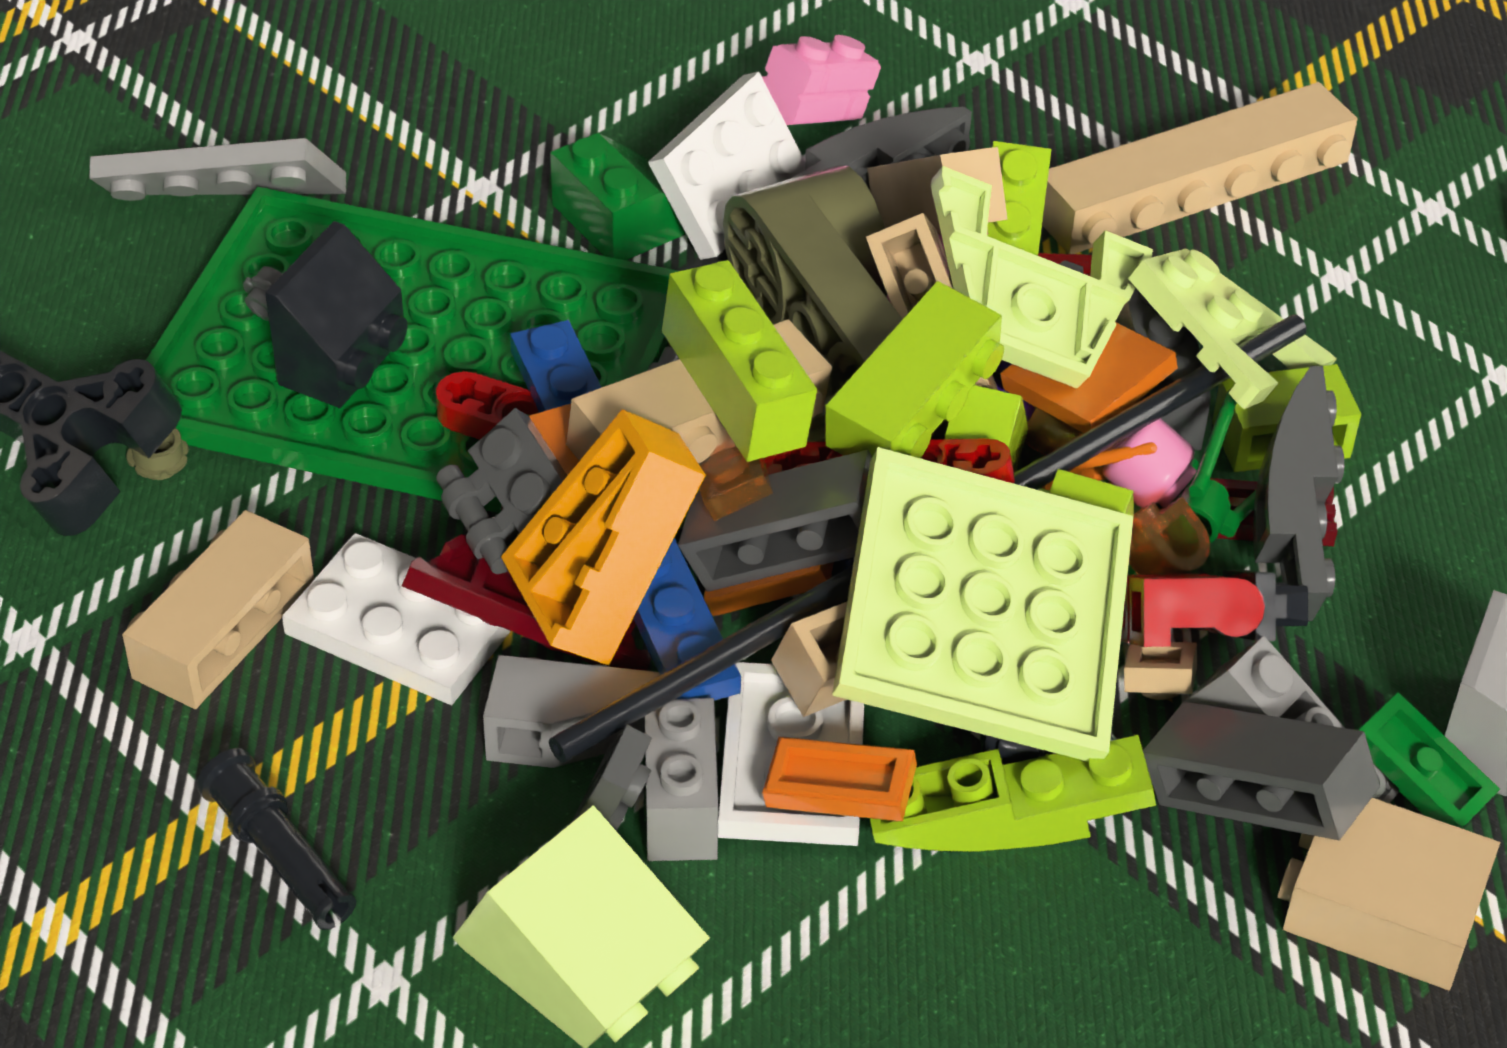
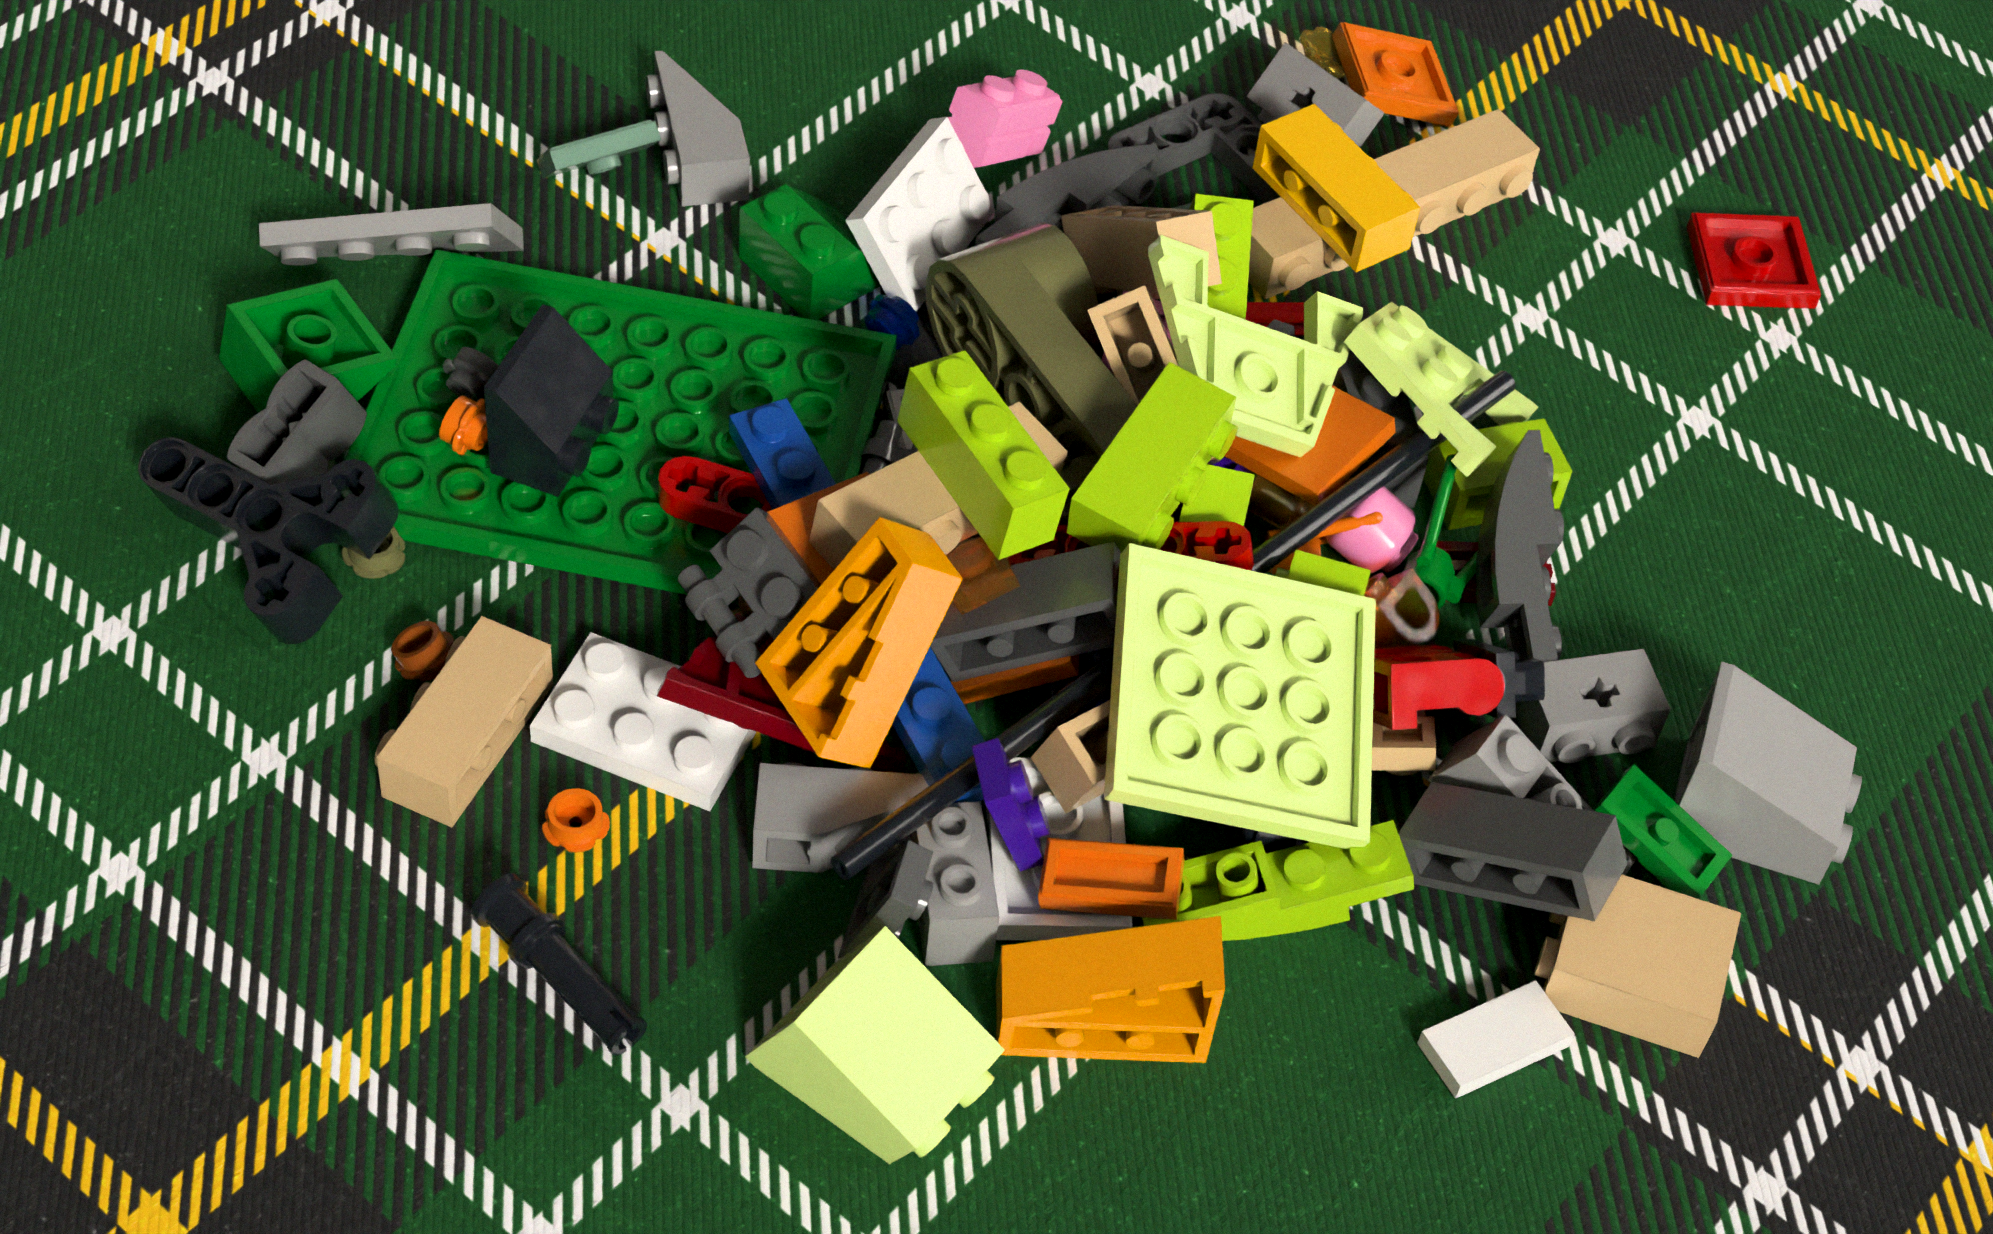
camera: 10 degrees left, 5 degrees up
(97, 332) = (301, 429): none -> dark grey brick
(114, 274) = (310, 323): none -> green slope
(185, 541) = (421, 651): none -> dark orange plate
(253, 339) = (465, 425): none -> orange plate
(314, 705) = (570, 807): none -> orange plate
(427, 105) = (599, 151): none -> sand green plate
(528, 95) = (702, 136): none -> light grey slope
(689, 253) = (893, 317): none -> clear blue plate
(735, 692) = (1011, 803): none -> dark purple plate
(828, 891) = (1114, 994): none -> light orange wedge
(1039, 98) = (1210, 125): none -> dark grey beam
(1135, 77) = (1298, 82): none -> light grey brick
(1142, 145) = (1335, 187): none -> yellow brick
(1154, 34) = (1322, 50): none -> clear yellow plant
(1220, 52) = (1395, 73): none -> orange tile
(1231, 959) = (1495, 1039): none -> white tile
(1365, 640) = (1596, 707): none -> light grey brick

